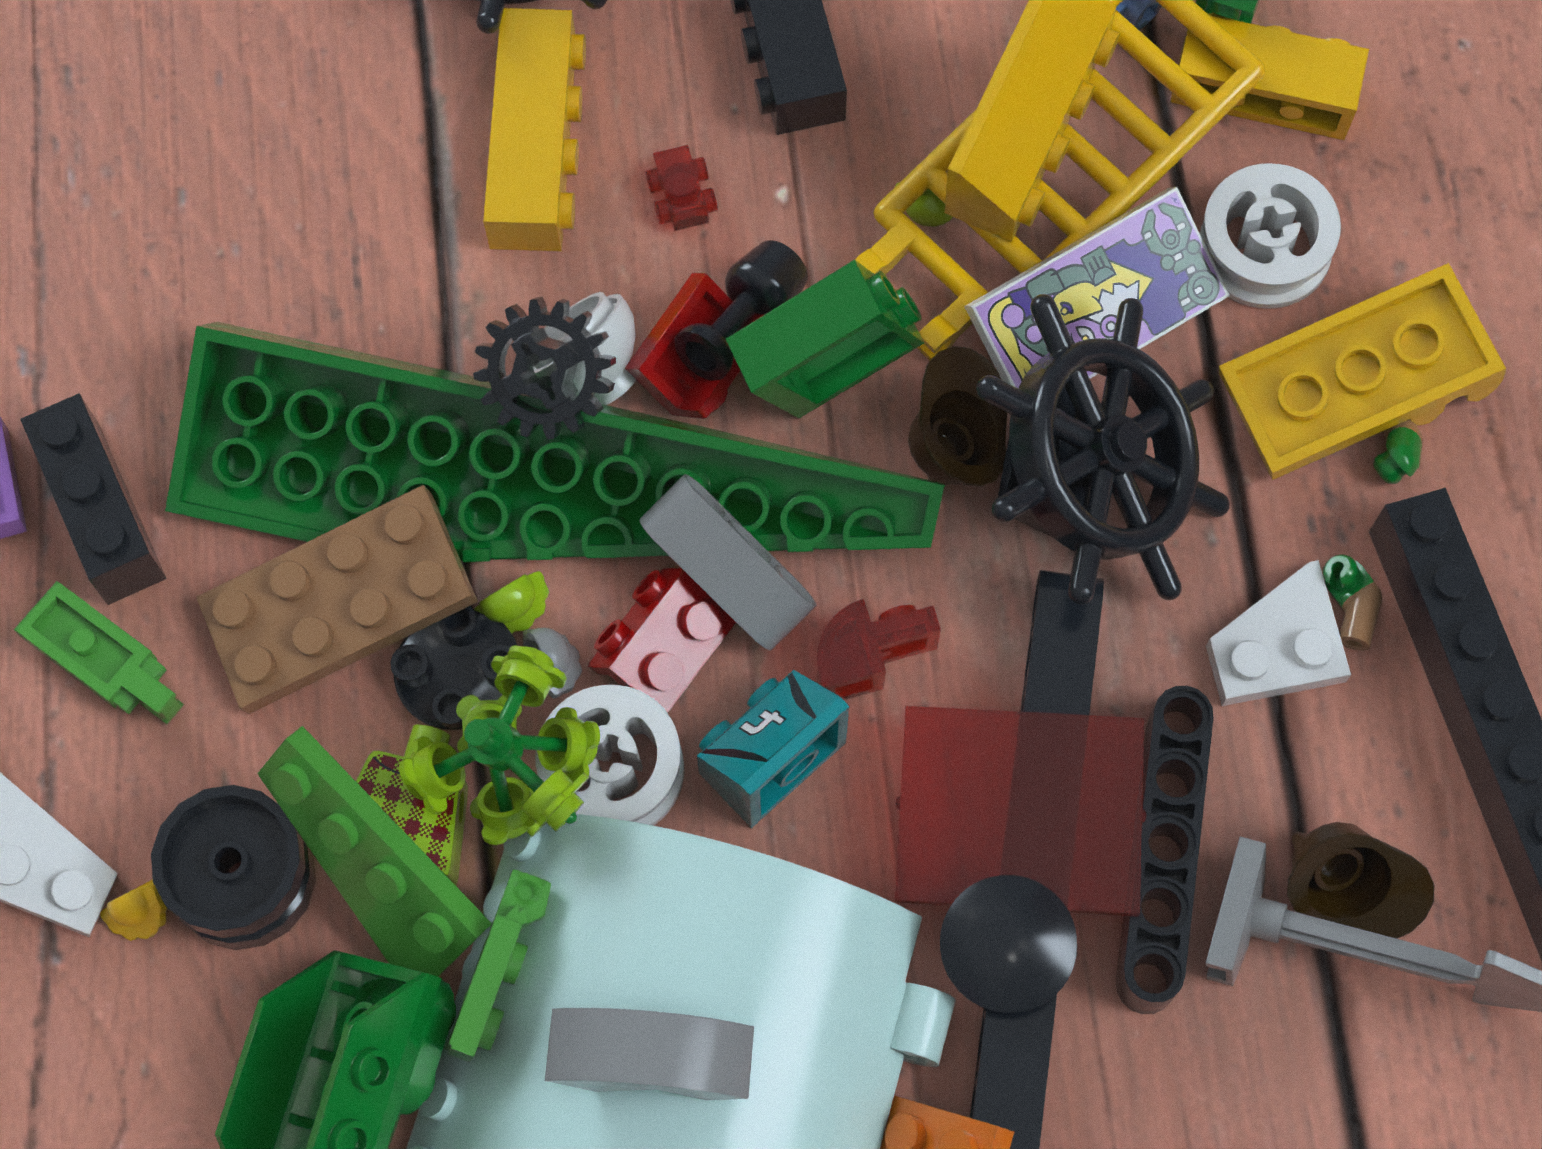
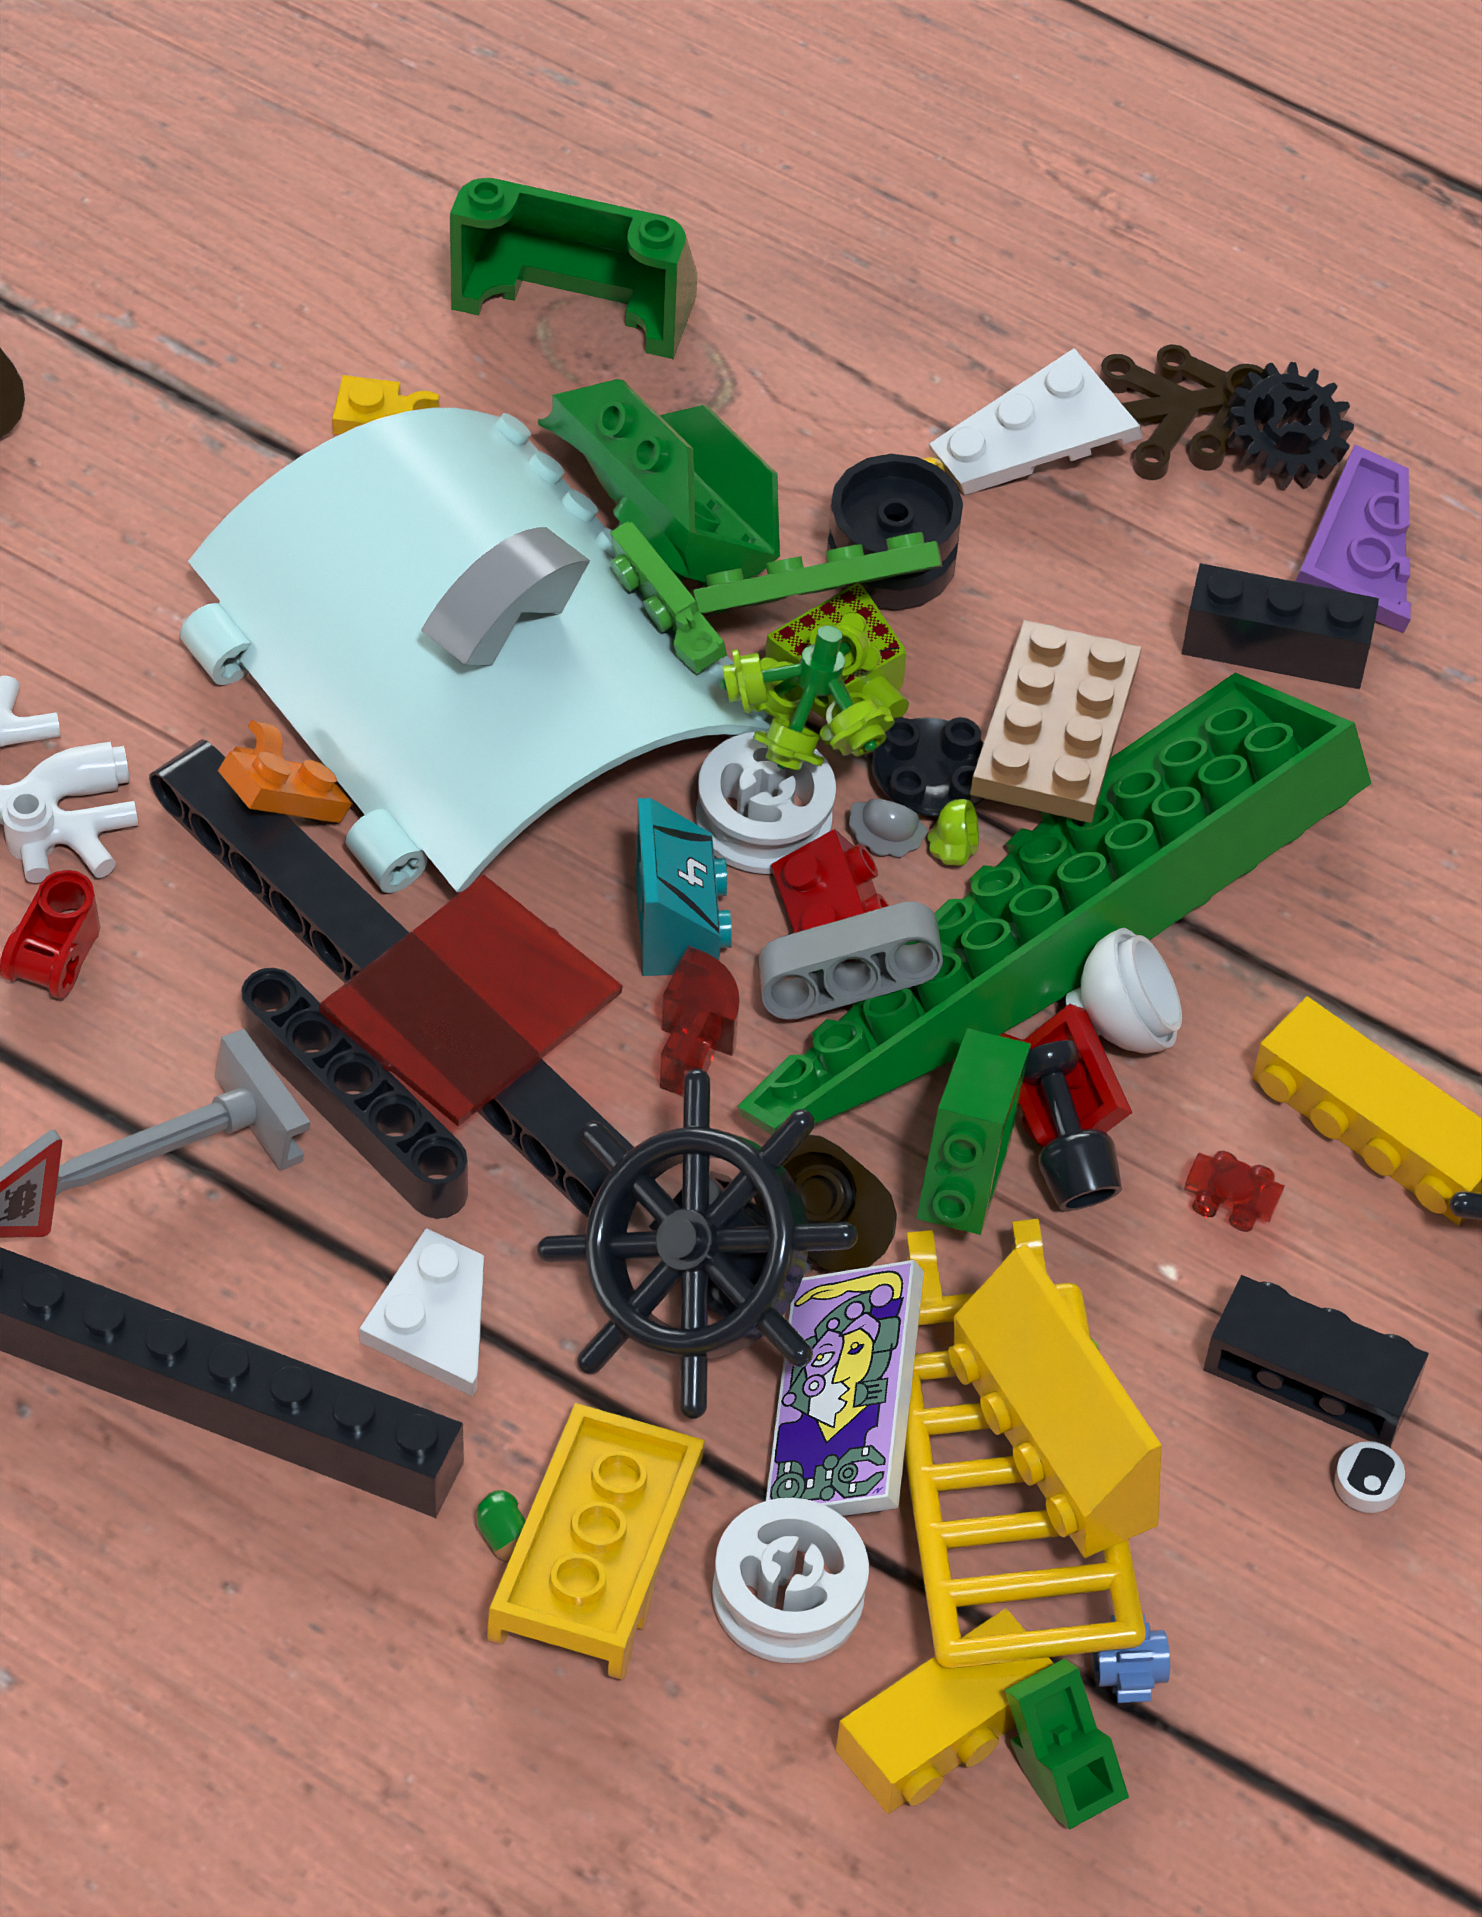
camera: 125 degrees right, 15 degrees down
(98, 653) = (1140, 565): bright green hinge -> none
(533, 345) = (1109, 900): black gear -> none
(1008, 943) = (380, 906): black dish -> none
(1357, 597) = (438, 1394): arm -> none
(1358, 881) = (213, 1190): dark brown piece -> none

